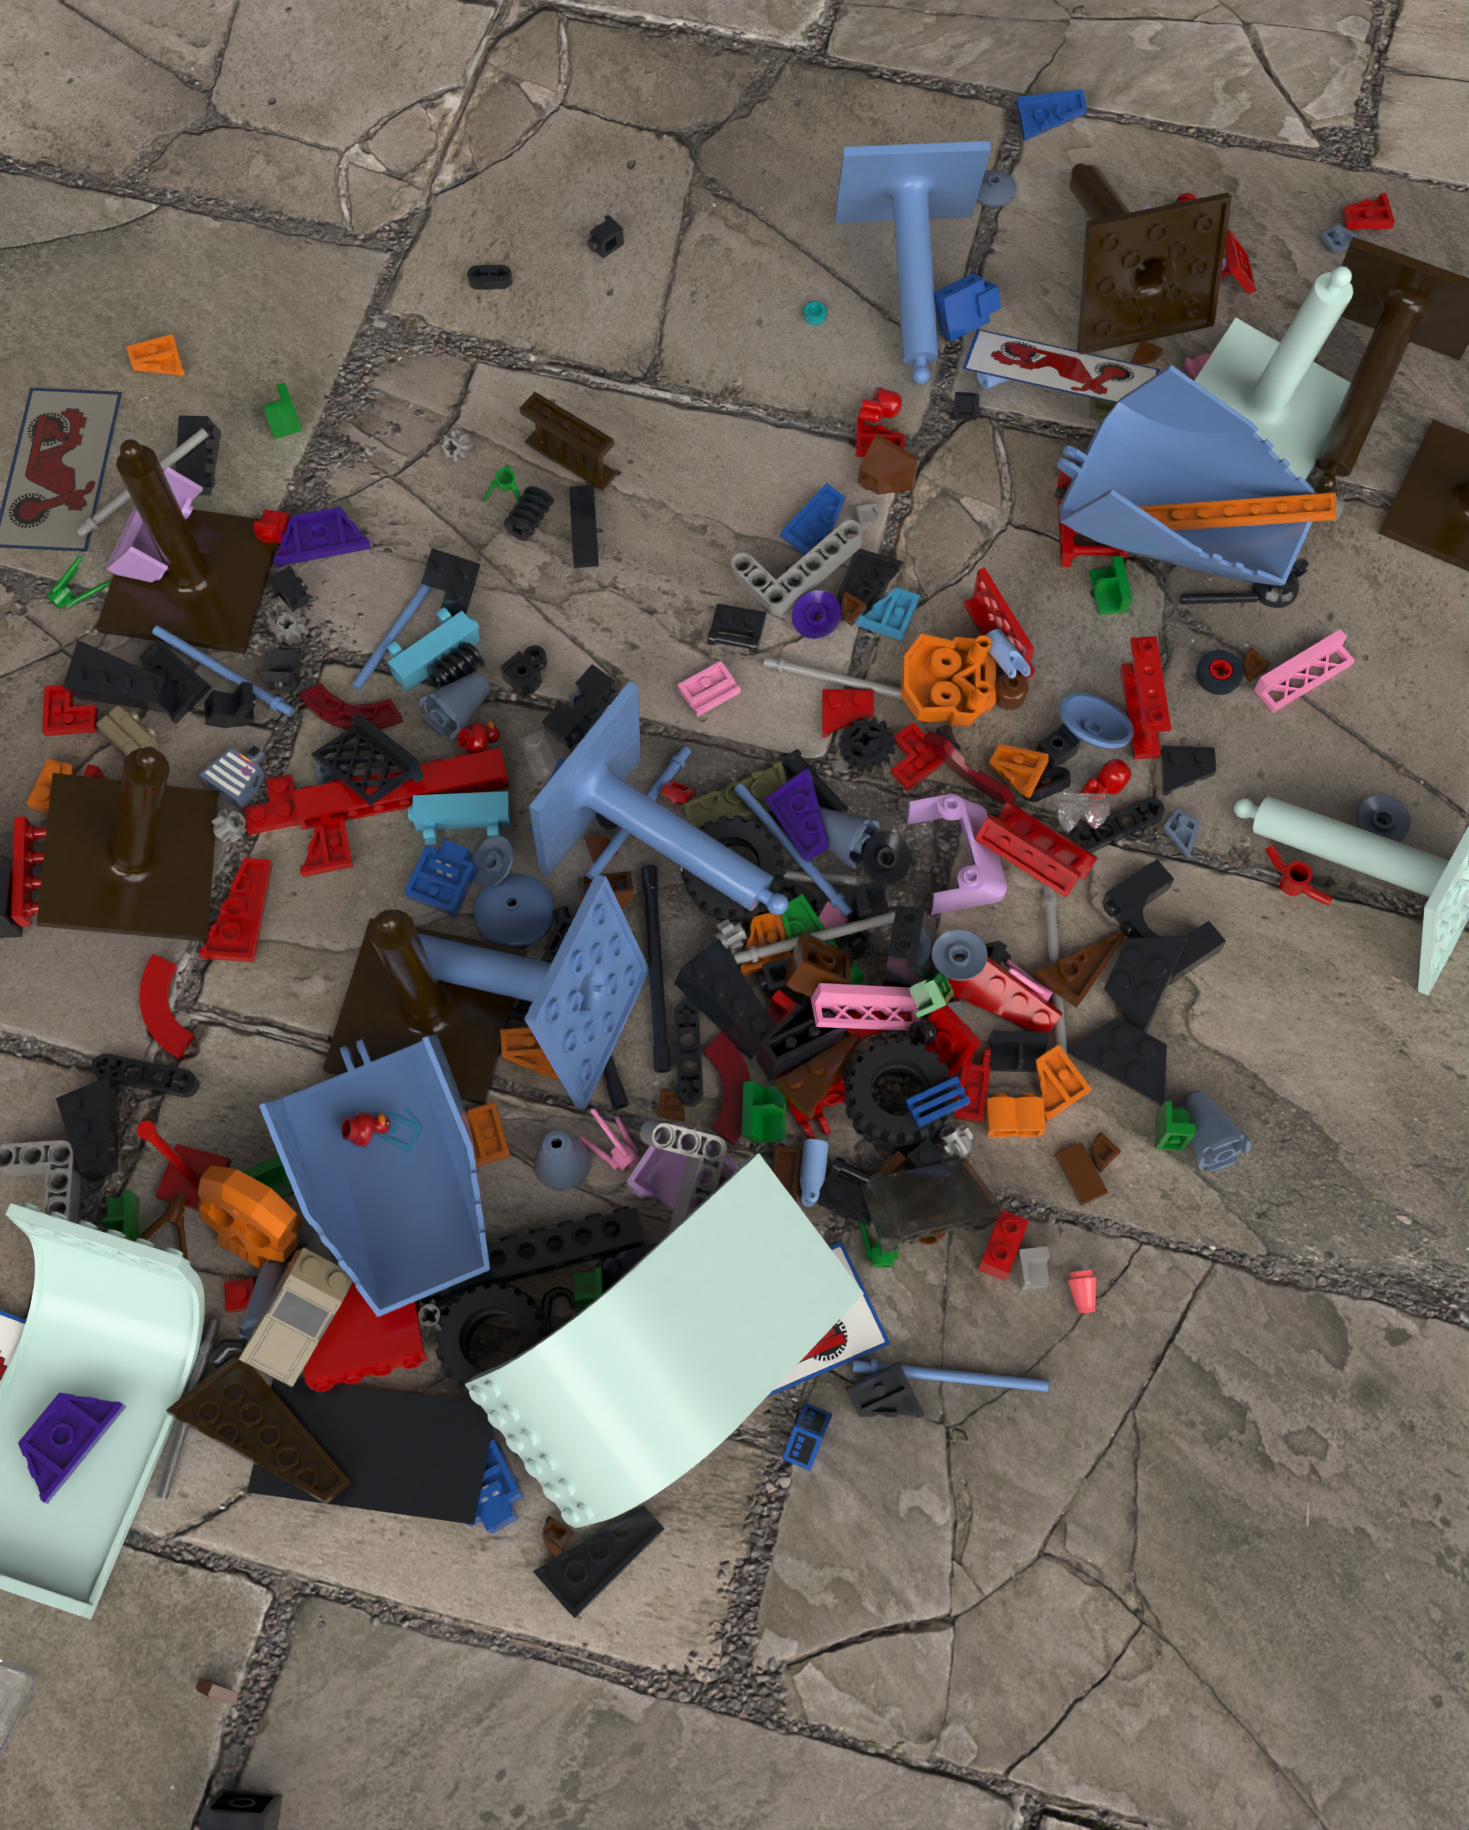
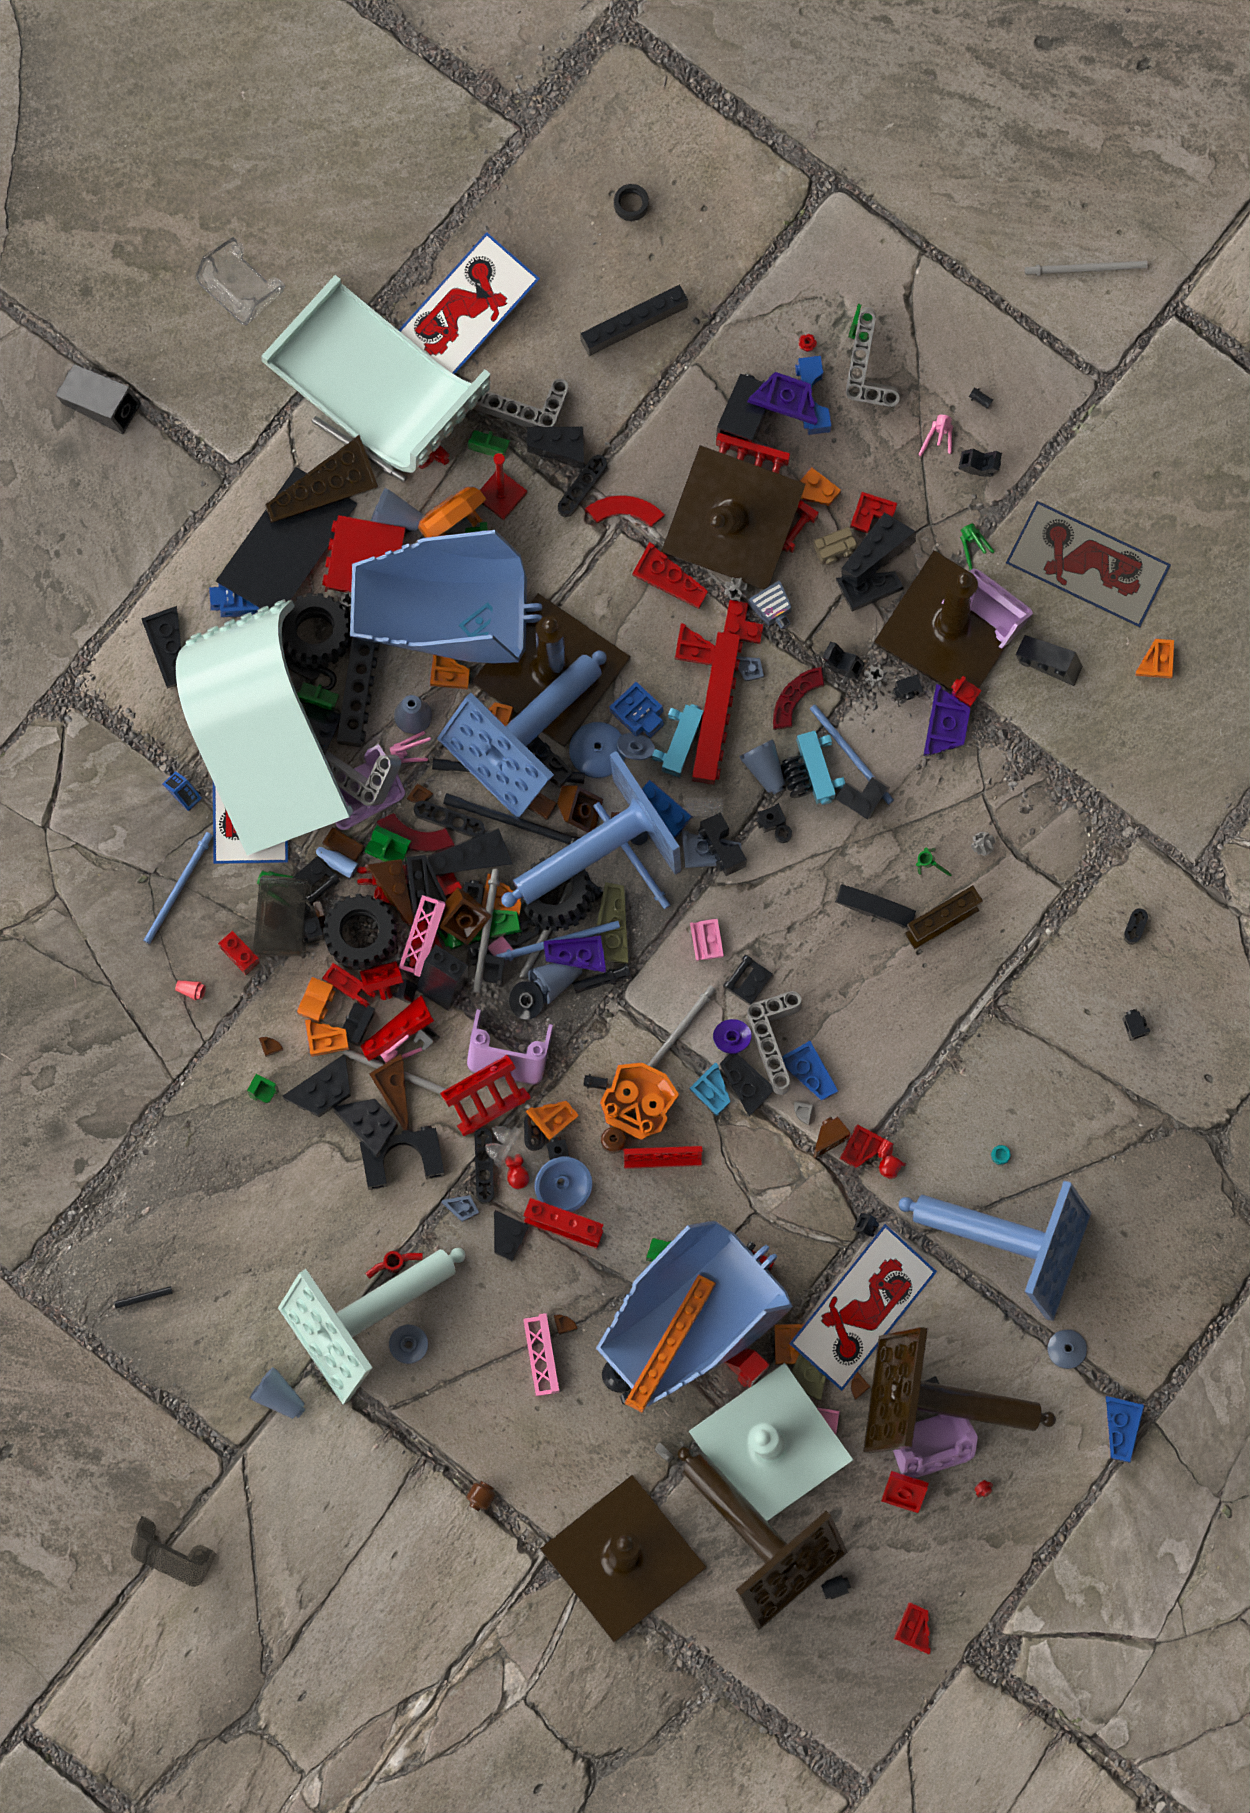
camera: 110 degrees right, 10 degrees up
(64, 1438) = (368, 374): dark purple wing -> none
(94, 521) = (1023, 572): light grey bar -> none
(173, 1215) = (479, 473): reddish brown plant -> none
(216, 1691) = (192, 415): tile -> none
(224, 1349) = (382, 479): black arm -> none
(230, 709) = (827, 617): black brick -> none
(238, 1294) = (415, 498): red plate -> none
(276, 703) = (863, 621): medium blue bar -> none
(282, 414) = (1061, 729): green panel -> none
(296, 1316) = (375, 520): slope -> none
(361, 1126) = (483, 600): red animal -> none
(382, 749) = (743, 704): black fence -> none
(477, 736) = (734, 769): red animal -> none
(528, 512) = (903, 873): black piece -> none
(556, 1535) = (190, 626): reddish brown tile -> none
(677, 792) = (635, 886): red plate -> none
(730, 935) = (512, 873): light grey gear -> none
(844, 706) = (652, 1026): red wing -> none
(851, 608) = (724, 1061): reddish brown tile -> none
(878, 746) = (621, 1031): black gear -> none
(885, 1394) = (184, 843): black wing -> none
(920, 758) = (591, 1060): red plate -> none
(928, 1029) = (392, 963): black bush -> none
(931, 993) = (410, 976): panel -> none
(955, 1140) = (316, 954): light grey gear -> none
(956, 761) = (567, 1081): dark red tile -> none
(959, 944) = (430, 994): sand blue dish -> none
(959, 1091) = (338, 928): blue tile -> none
(965, 305) = (949, 1260): blue piece -> none
(1006, 654) = (637, 1141): light blue piece -> none
(1033, 1267) = (218, 965): light grey panel -> none
(1081, 1174) = (262, 1024): reddish brown tile -> none
(1207, 672) = (568, 1306): black bush -> none
(1216, 1135) = (250, 1113): sand blue cone -> none
(1337, 238) = (900, 1594): sand blue piece -> none

